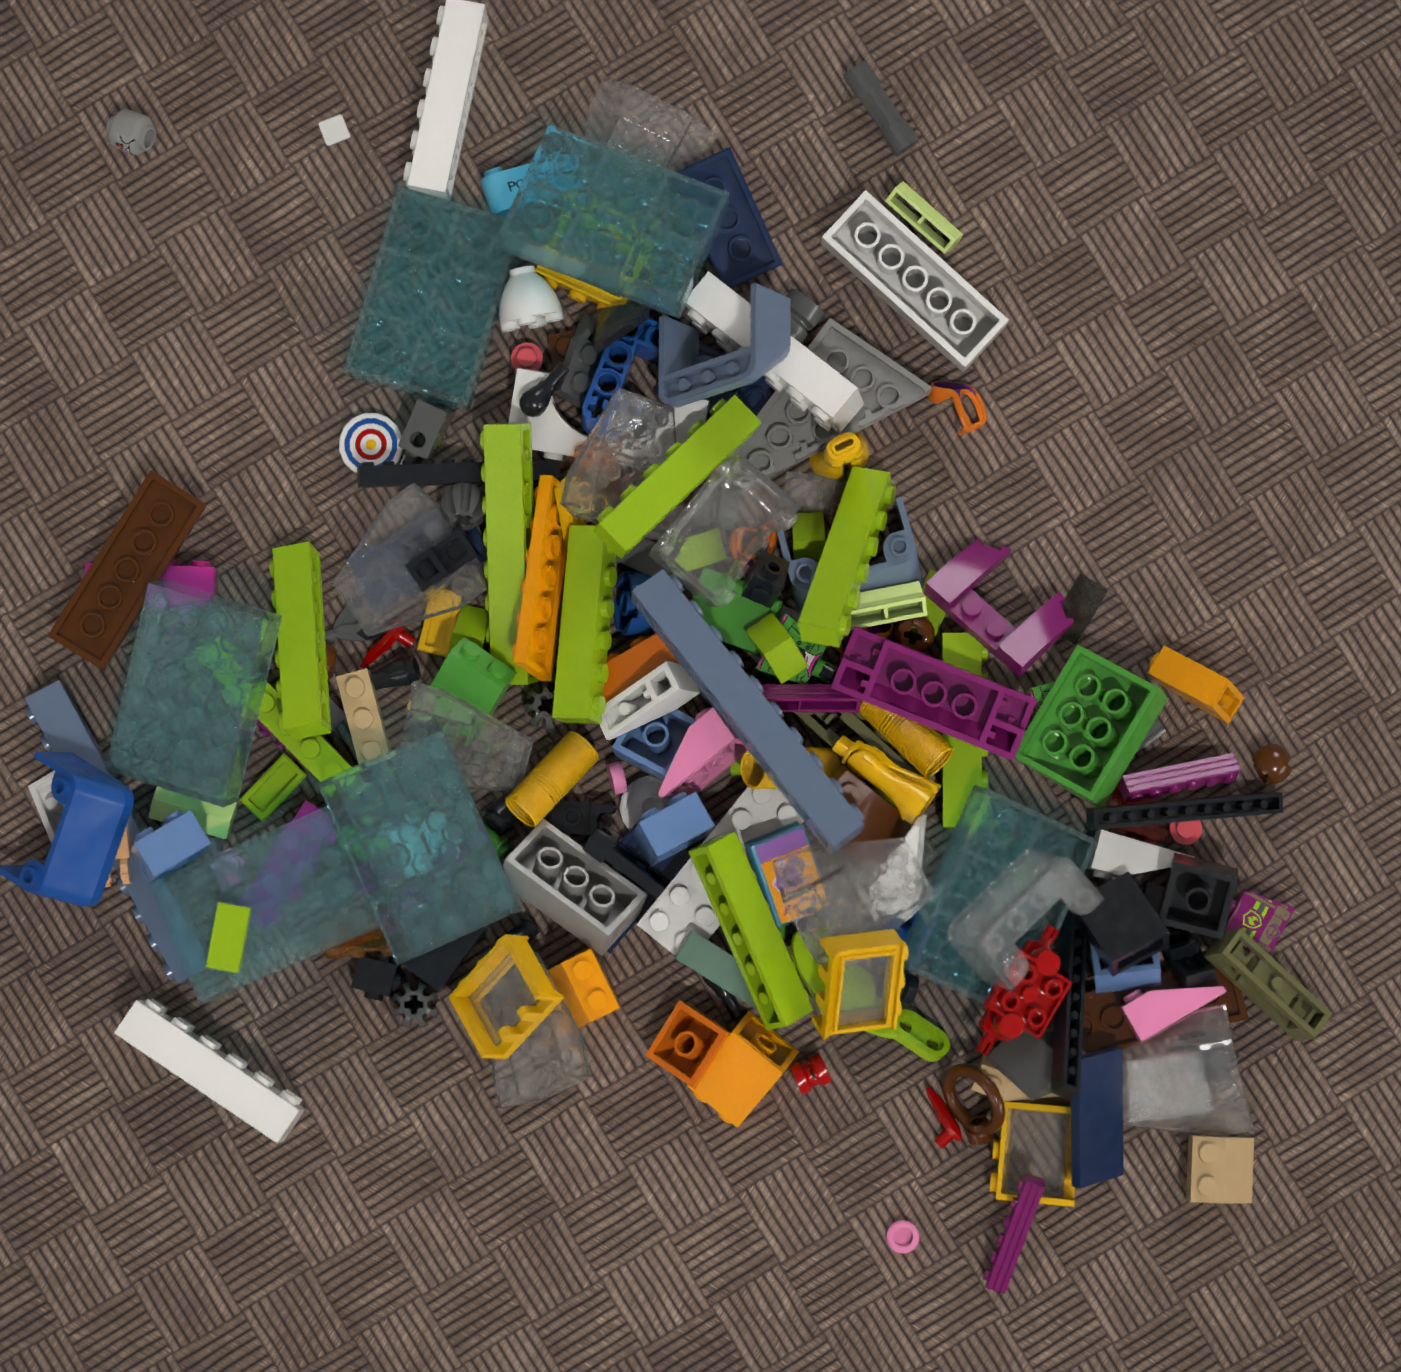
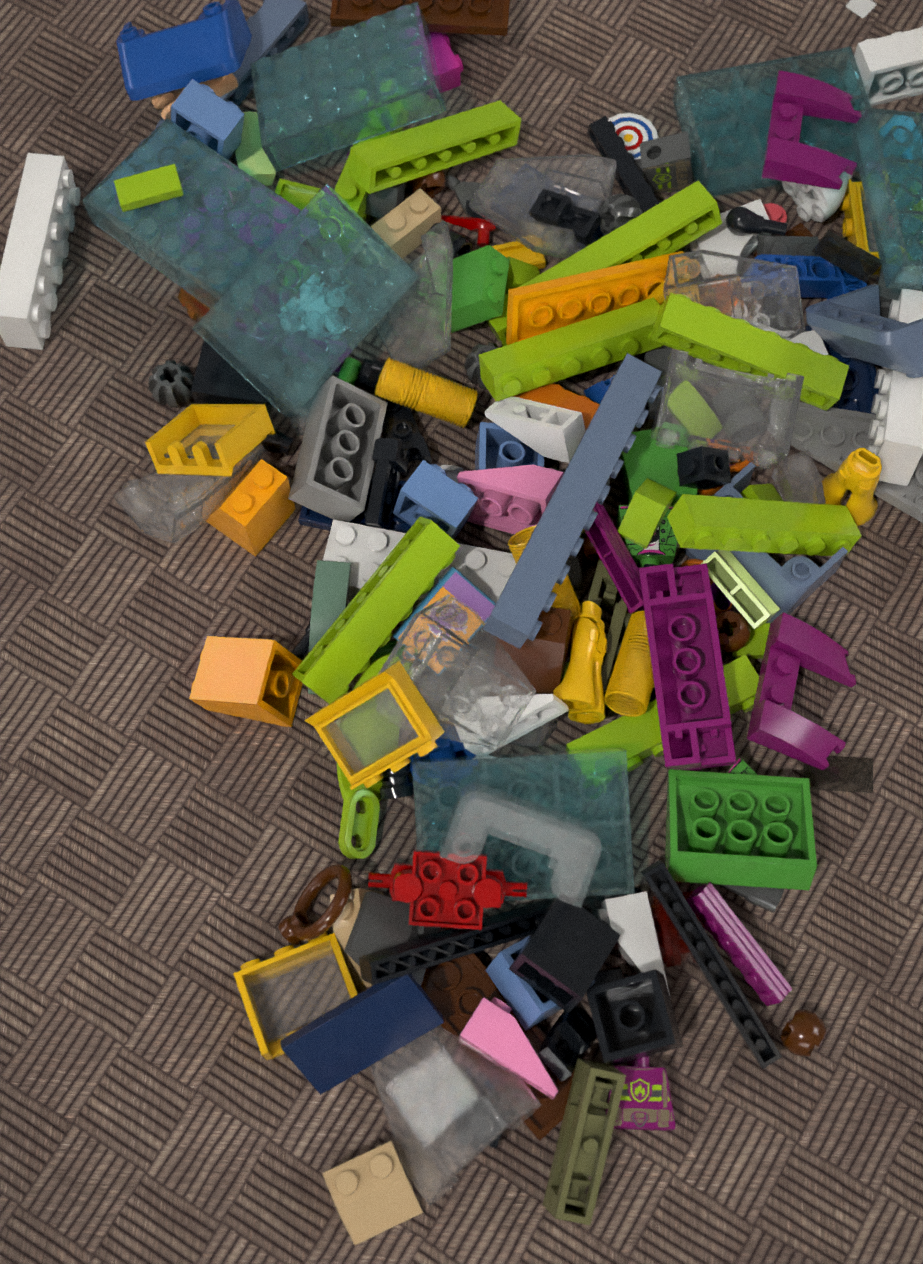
camera: 60 degrees right, 15 degrees down
(377, 976) = (180, 342): black brick -> none
(499, 330) = (784, 155): none -> magenta wedge
(617, 777) = (456, 450): bright pink tile -> none
(687, 1043) = (246, 613): orange slope -> none
(803, 1076) = (273, 743): red wheel -> none
(902, 1236) = (159, 908): bright pink tile -> none
(946, 1118) = (292, 892): red bar -> none
(1015, 1233) = (208, 1009): magenta piece -> none
(1186, 832) = (690, 981): coral plate -> none
(1196, 684) = (836, 918): light orange slope -> none

